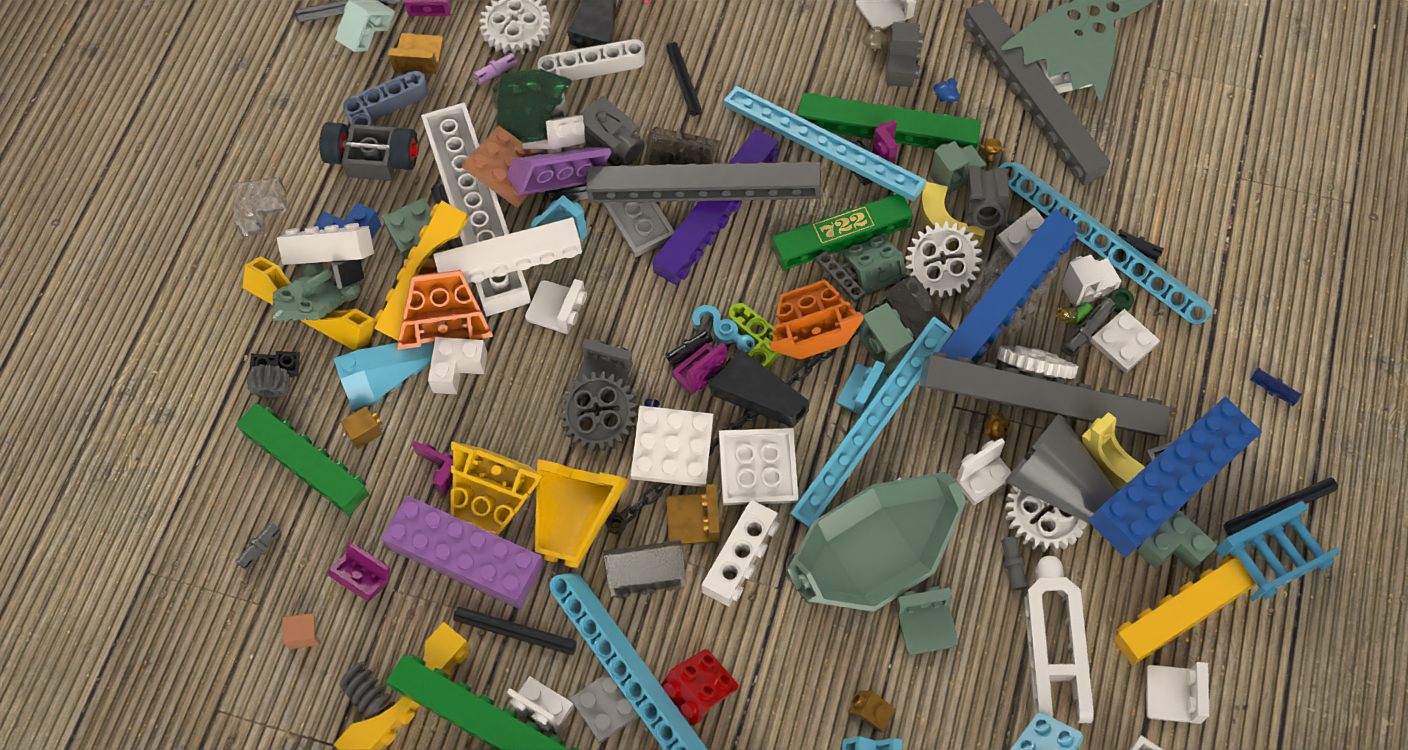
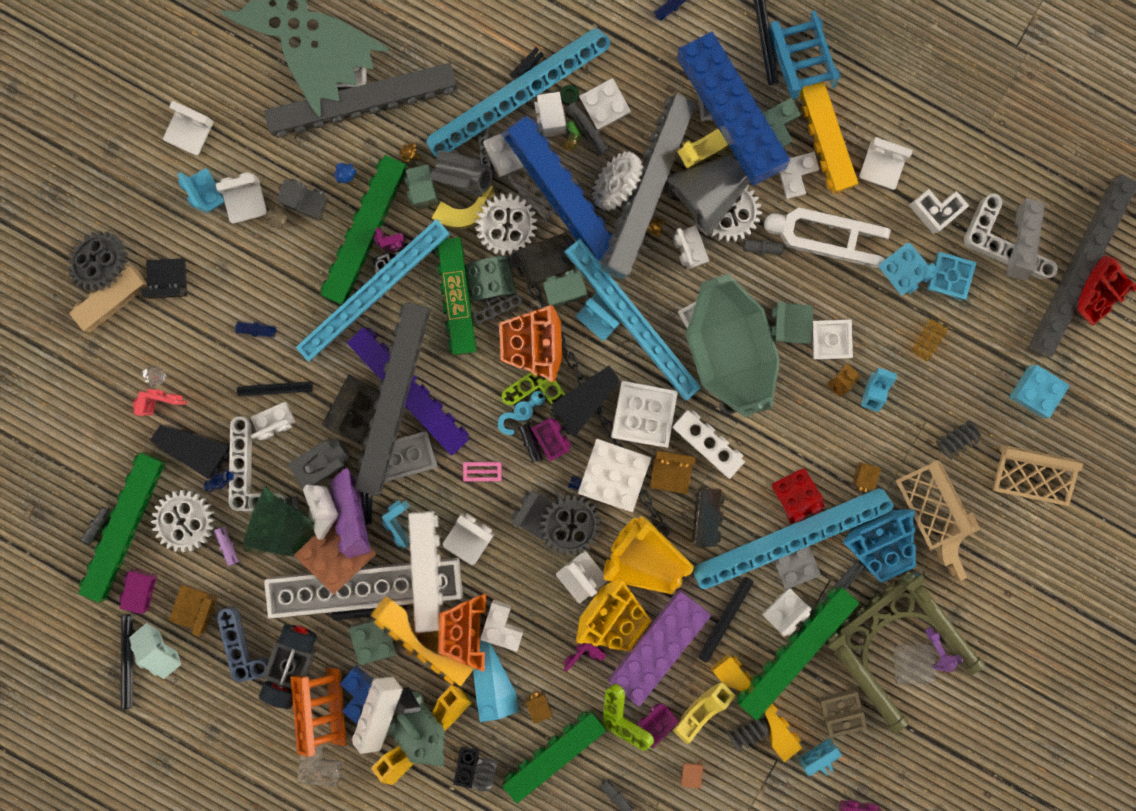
camera: 80 degrees left, 25 degrees up
(304, 172) = (303, 716): none -> orange fence
(357, 519) = (616, 724): none -> lime beam
(385, 624) = (706, 706): none -> light yellow arch
(535, 440) = (581, 577): none -> white bracket
(567, 42) = (218, 481): none -> clear blue pin
(644, 322) = (465, 471): none -> bright pink tile
(645, 81) = (272, 420): none -> white bracket
(745, 46) = (255, 329): none -> clear blue pin
(921, 680) = (832, 339): none -> white plate
(1125, 579) = (792, 176): none -> white plate

